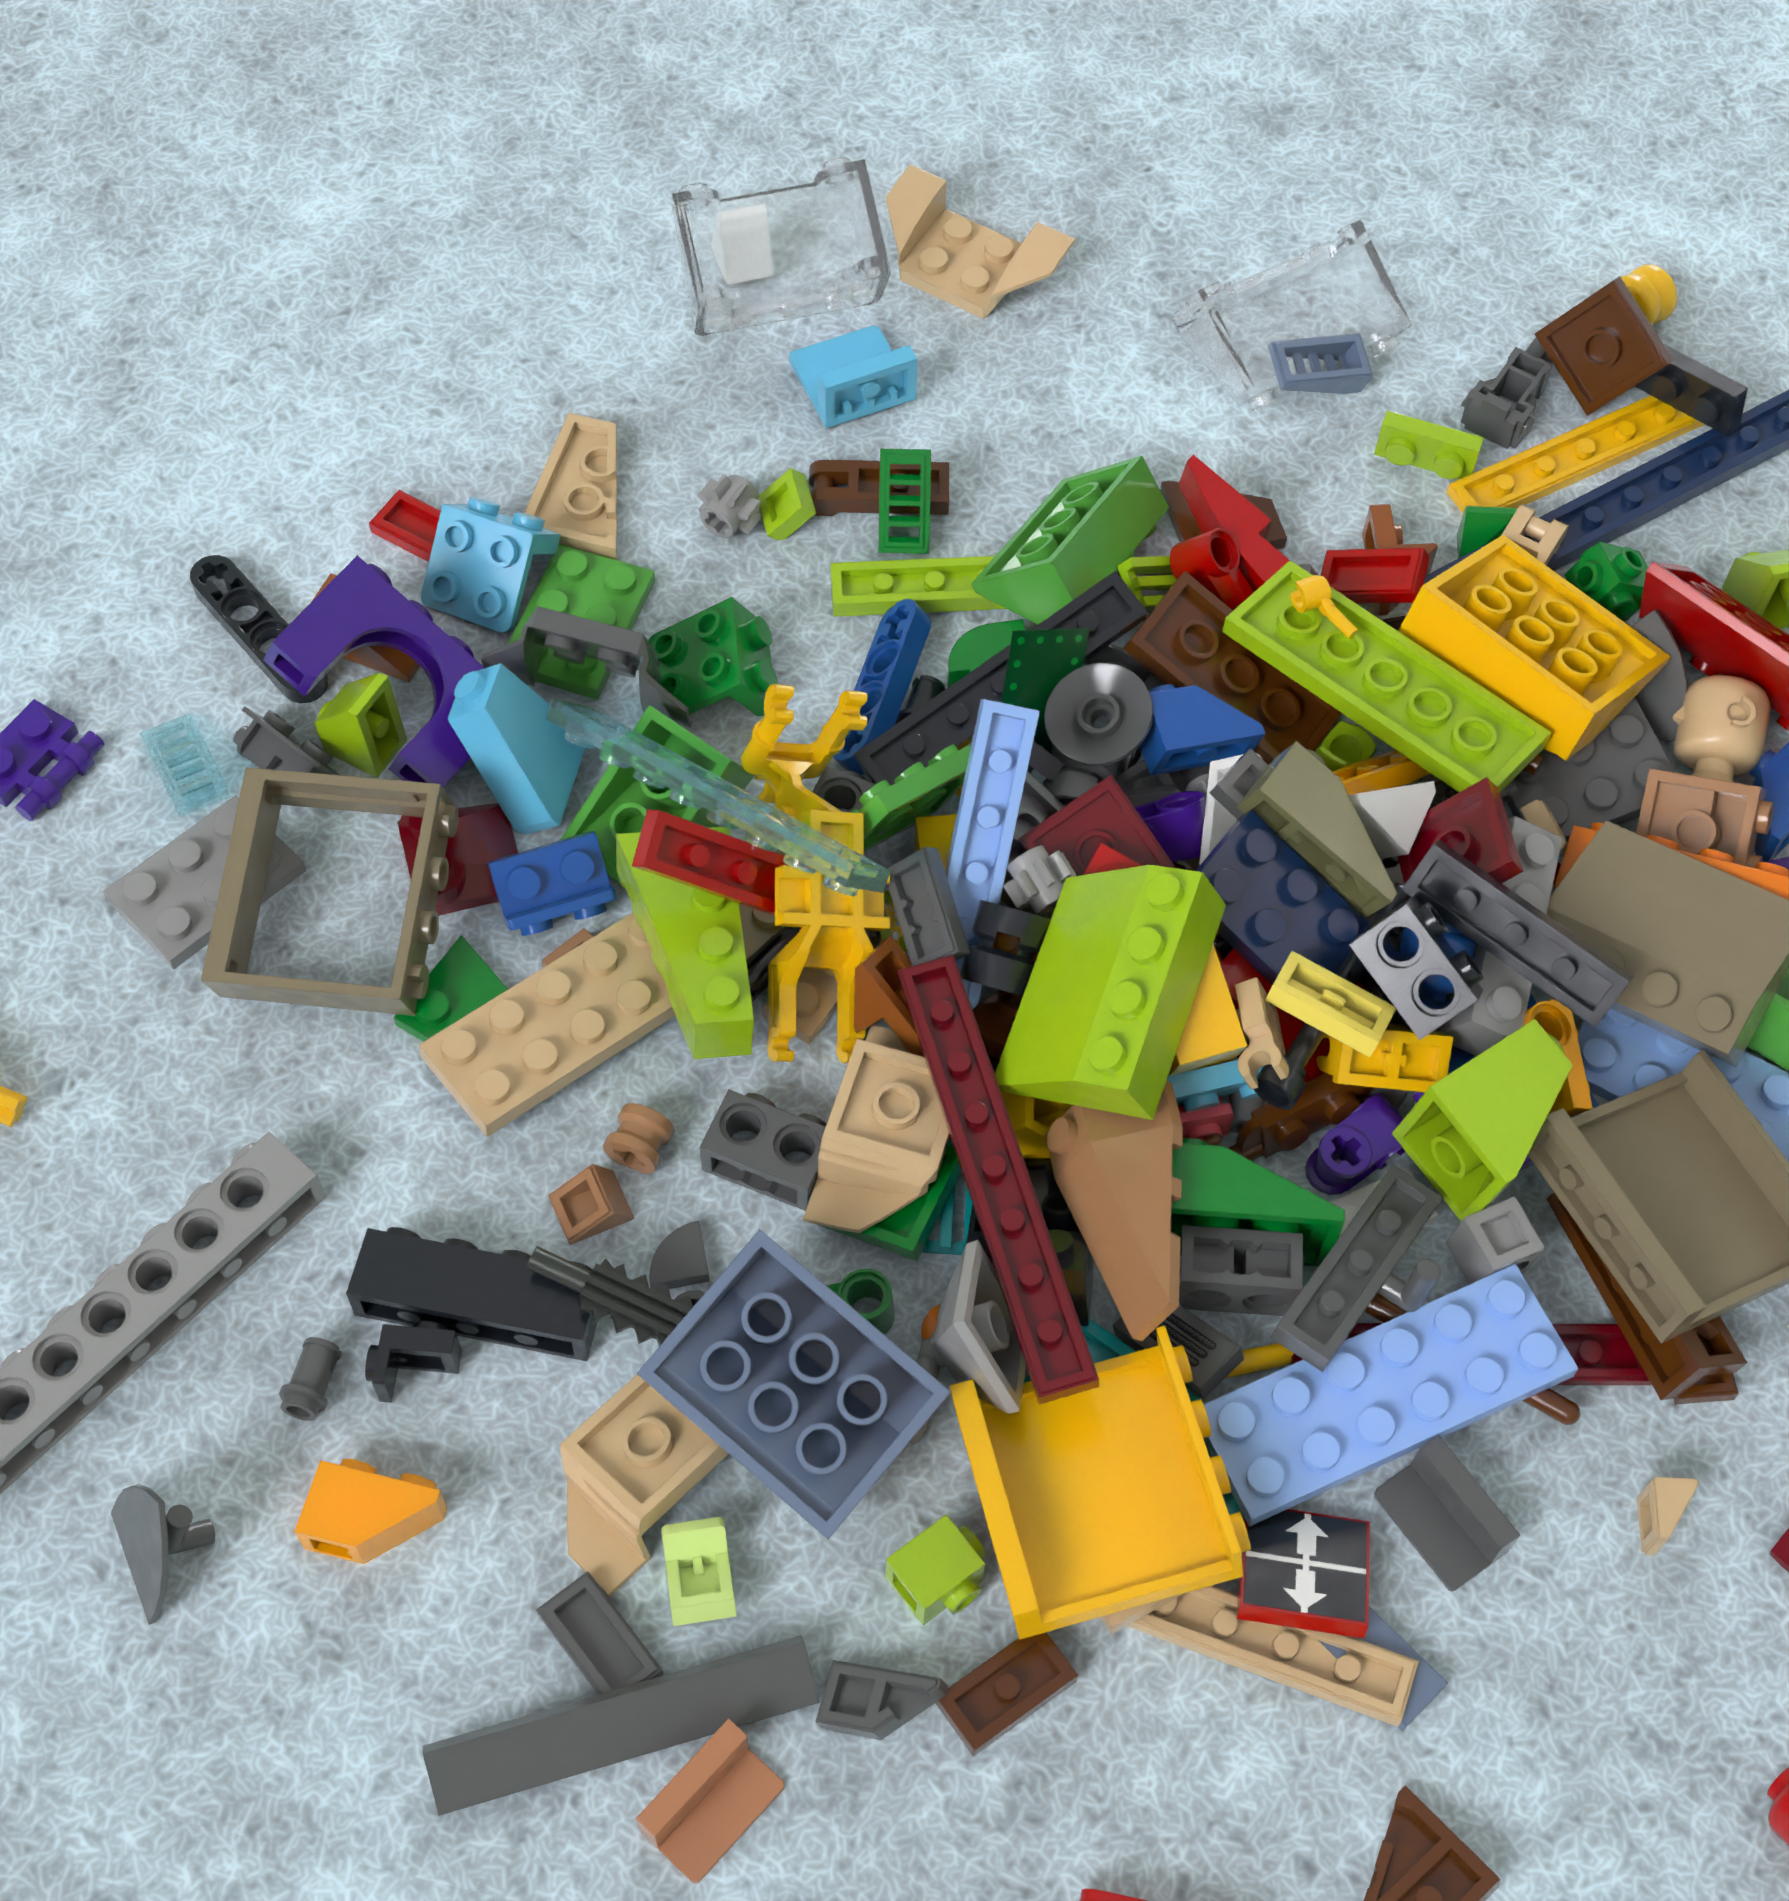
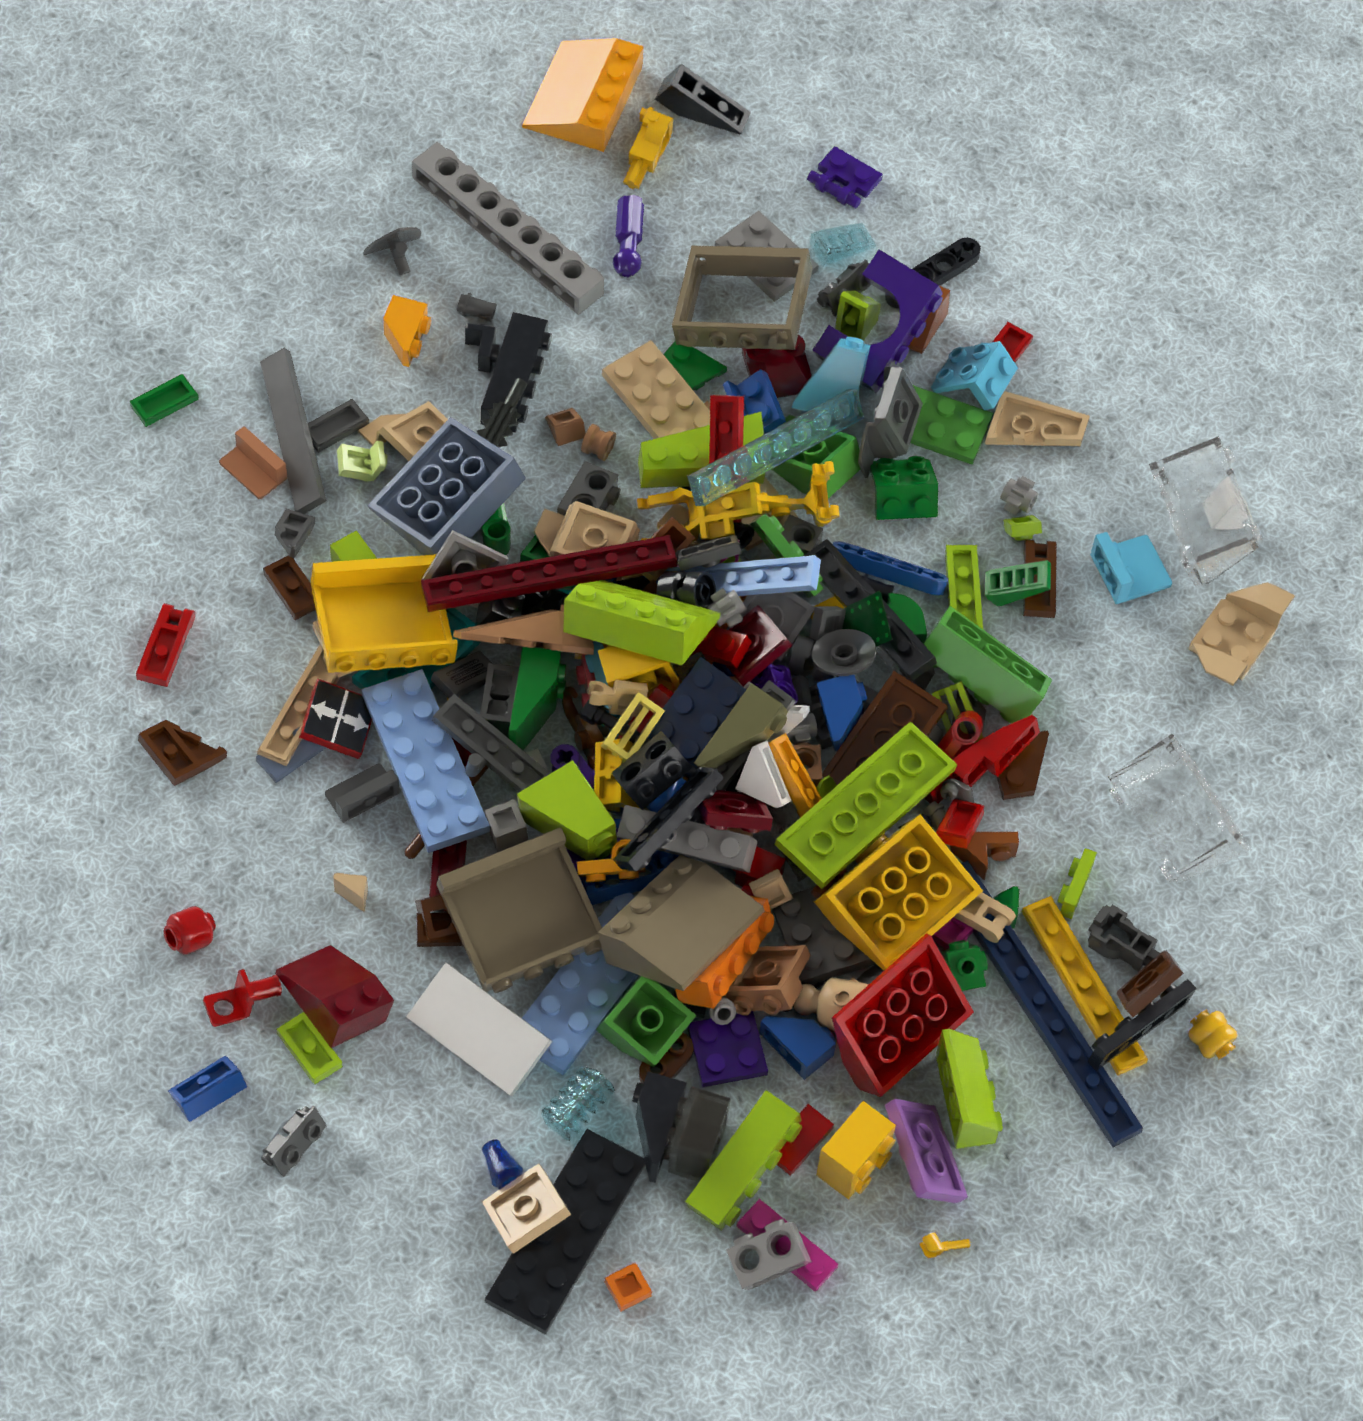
camera: 90 degrees right, 0 degrees up
(145, 1107) = (629, 234): none -> dark purple piece
(680, 1259) = (532, 462): dark grey tile -> none
(1316, 593) = (923, 767): yellow hand -> none
(1345, 348) = (1149, 850): sand blue slope -> none

